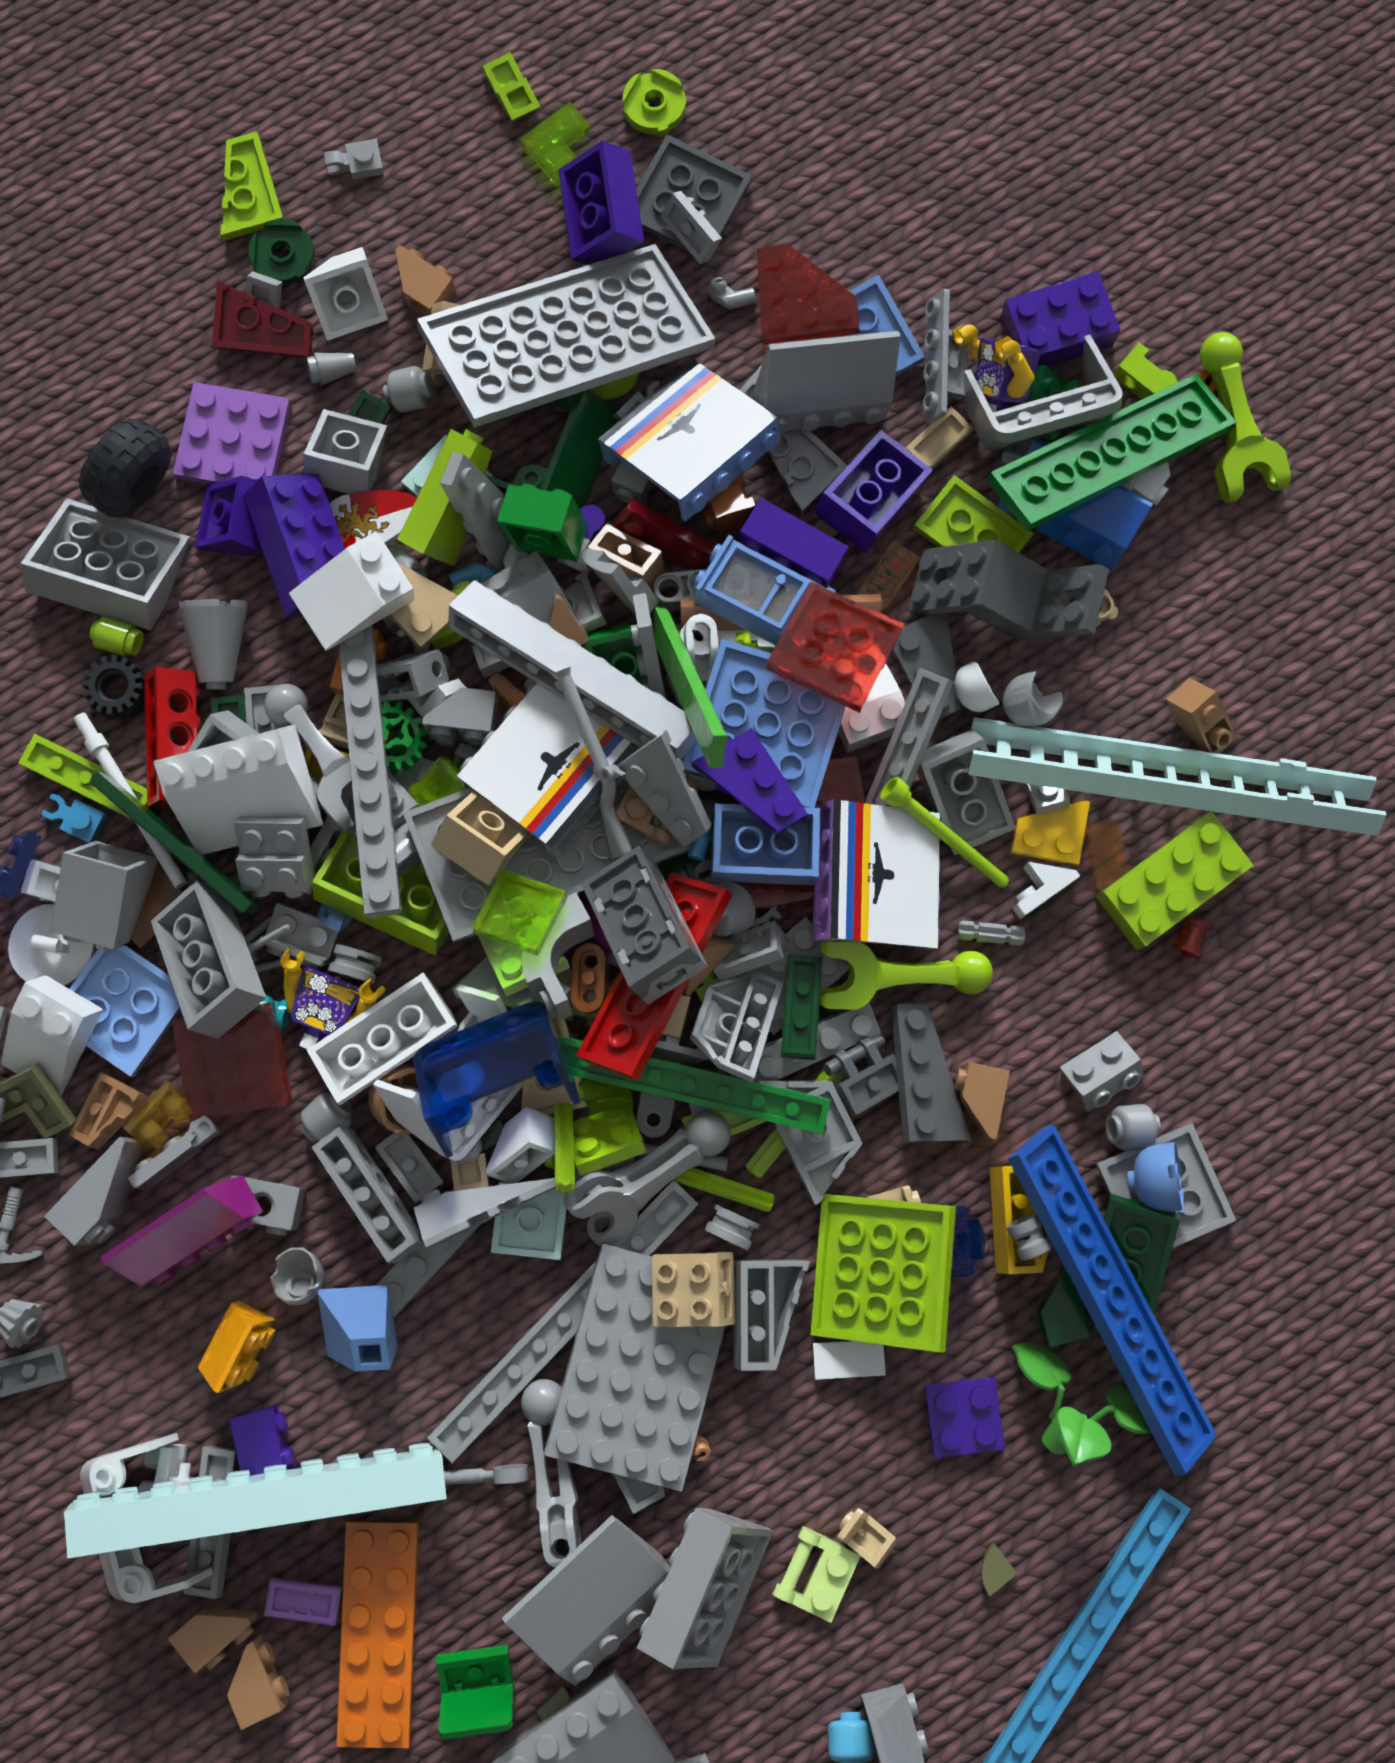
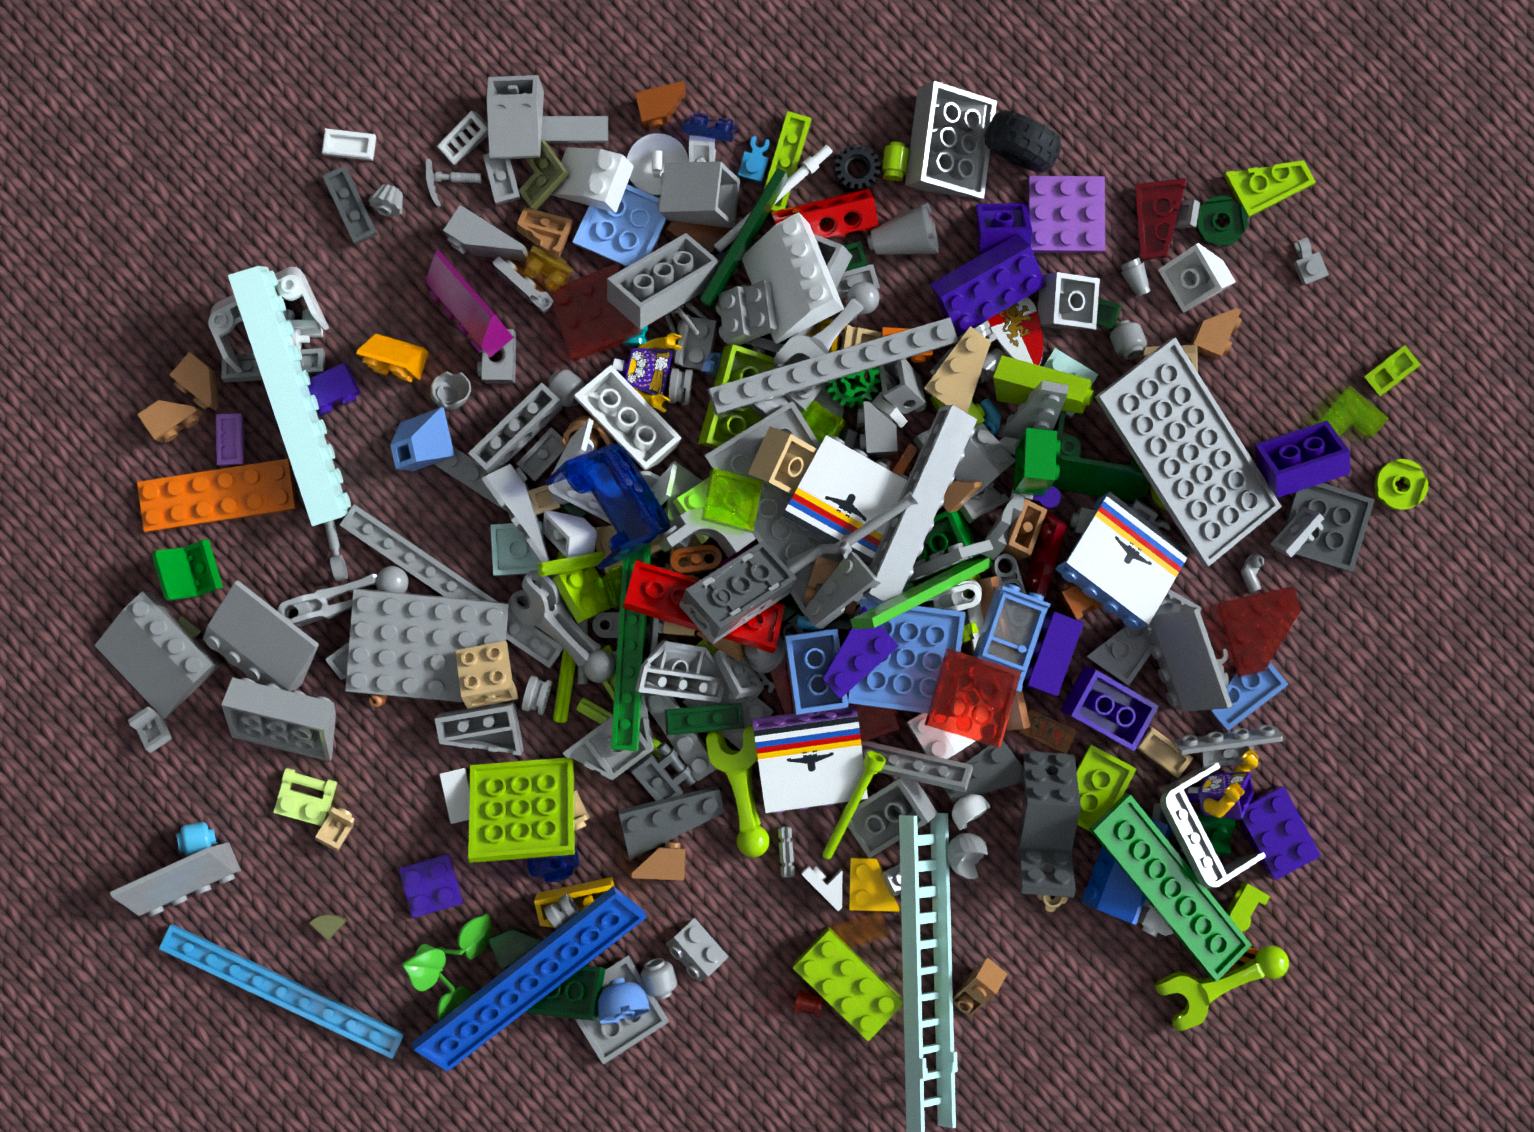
camera: 80 degrees right, 5 degrees up
(352, 591) = (951, 330): white slope -> none

